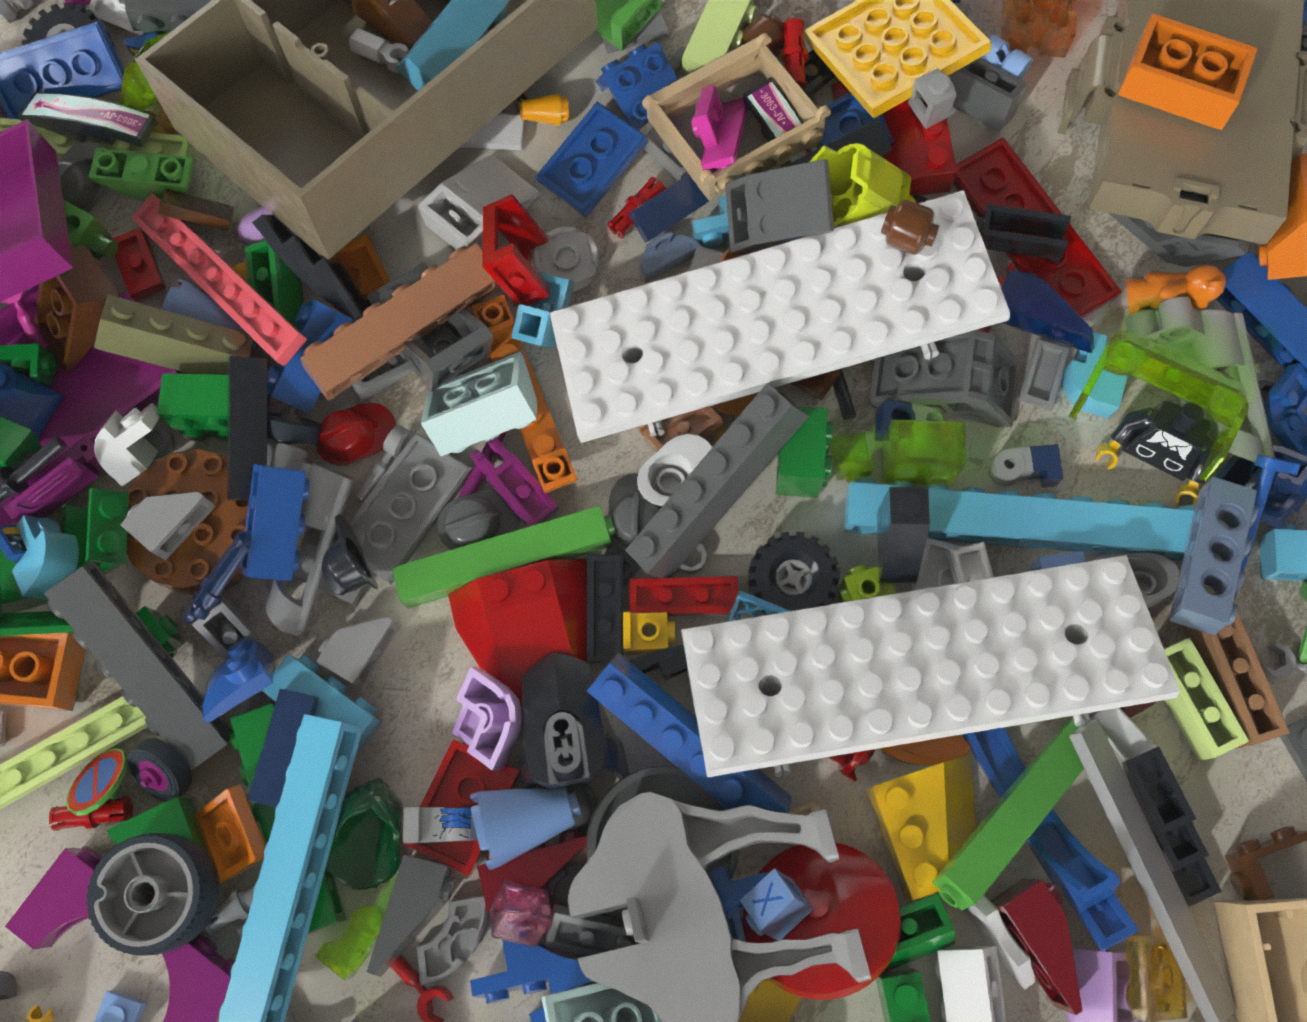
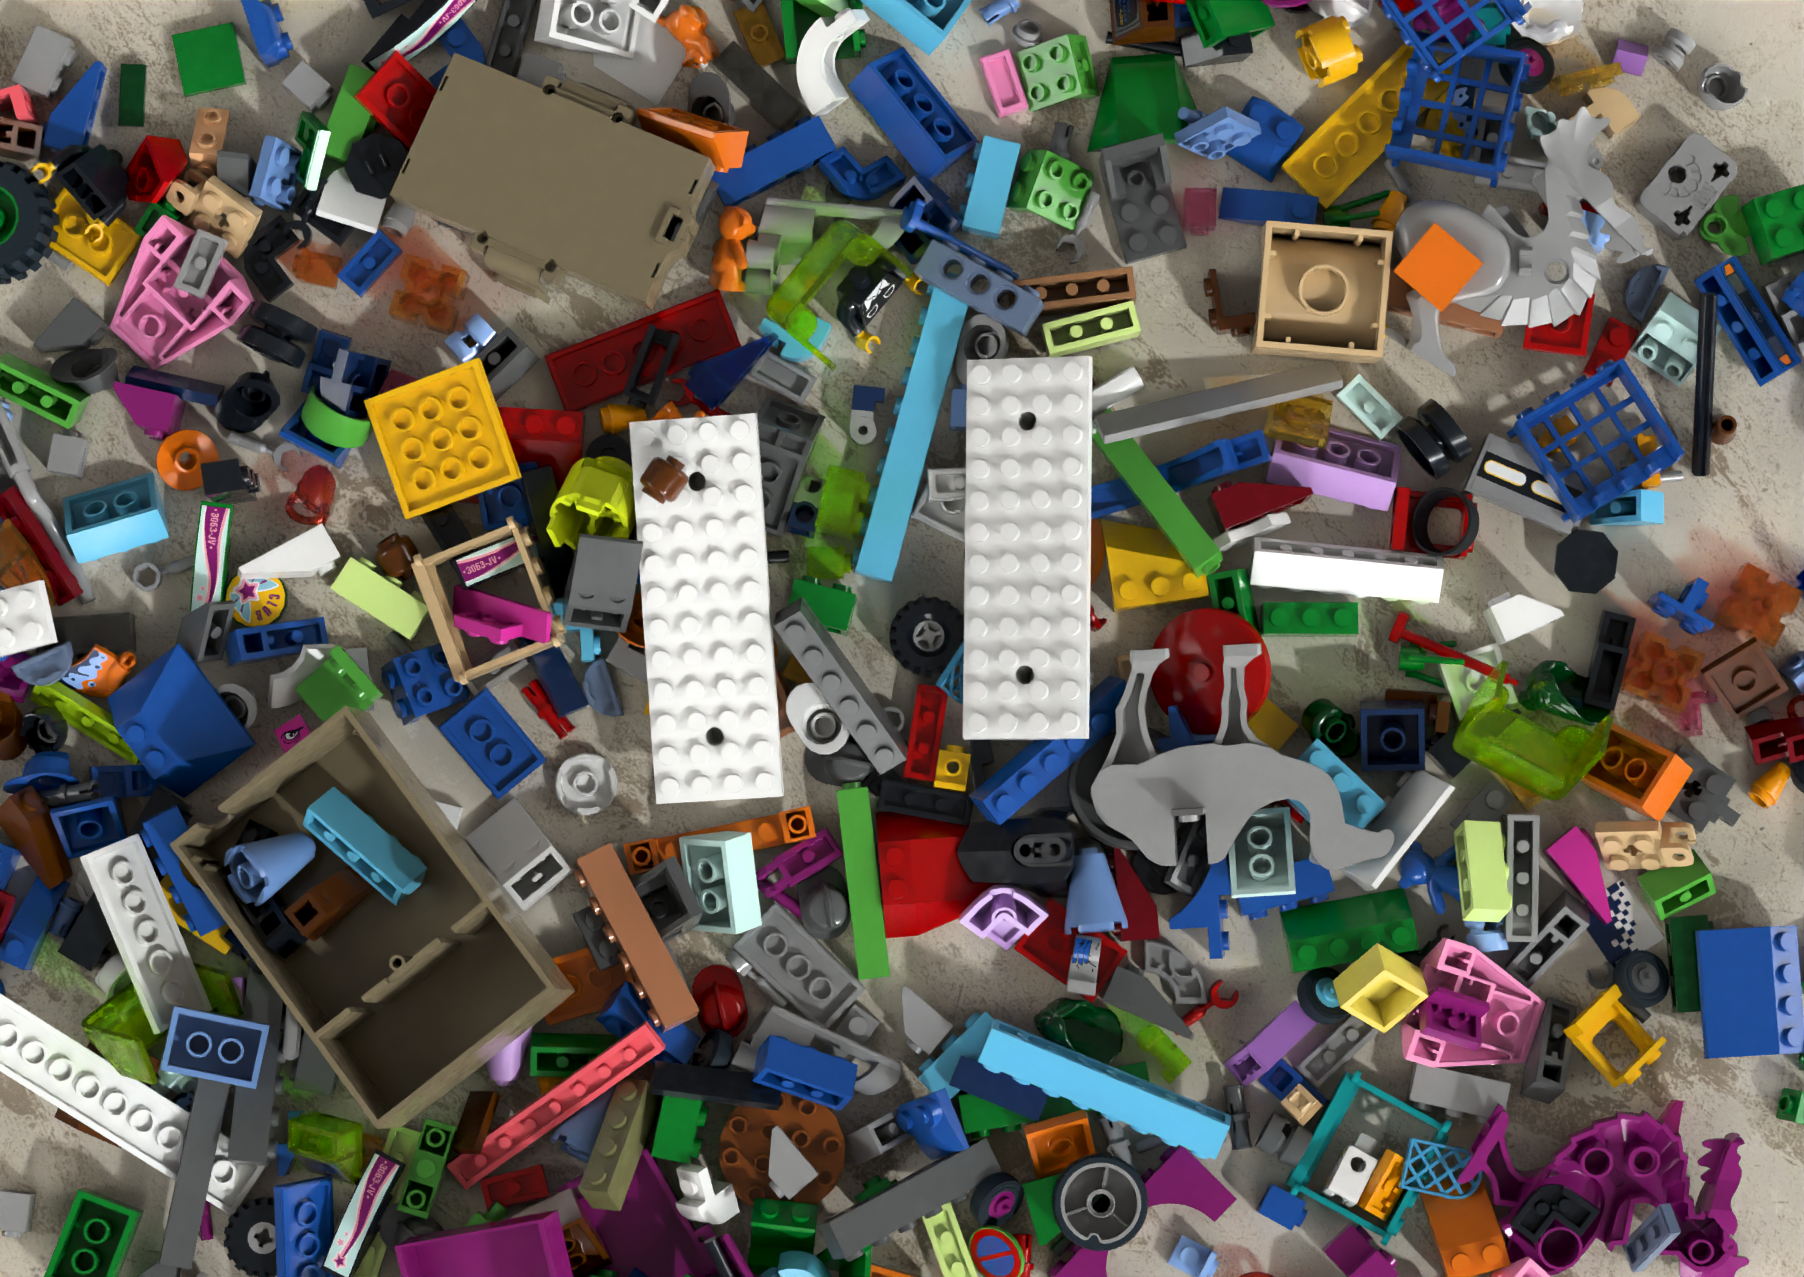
camera: 85 degrees left, 10 degrees up
(216, 581) = (846, 1130): dark blue piece -> none
(323, 275) = (586, 999): black slope -> none
(345, 562) = (851, 1019): black piece -> none
(377, 48) = (362, 922): white bar -> none
(512, 263) = (612, 830): red window -> none
(520, 914) = (1166, 908): clear pink brick -> none
(534, 321) = (641, 807): medium azure brick -> none
(547, 109) = (432, 774): light orange cone -> none
(775, 905) = (1194, 704): medium blue brick -> none
(794, 50) = (429, 532): red pin -> none
(863, 584) = (948, 576): lime brick -> none
(902, 533) = (918, 540): black slope -> none
(938, 93) = (515, 420): light grey brick -> none
(1171, 824) = (1187, 376): black slope -> none
(1188, 71) = (559, 205): orange brick -> none

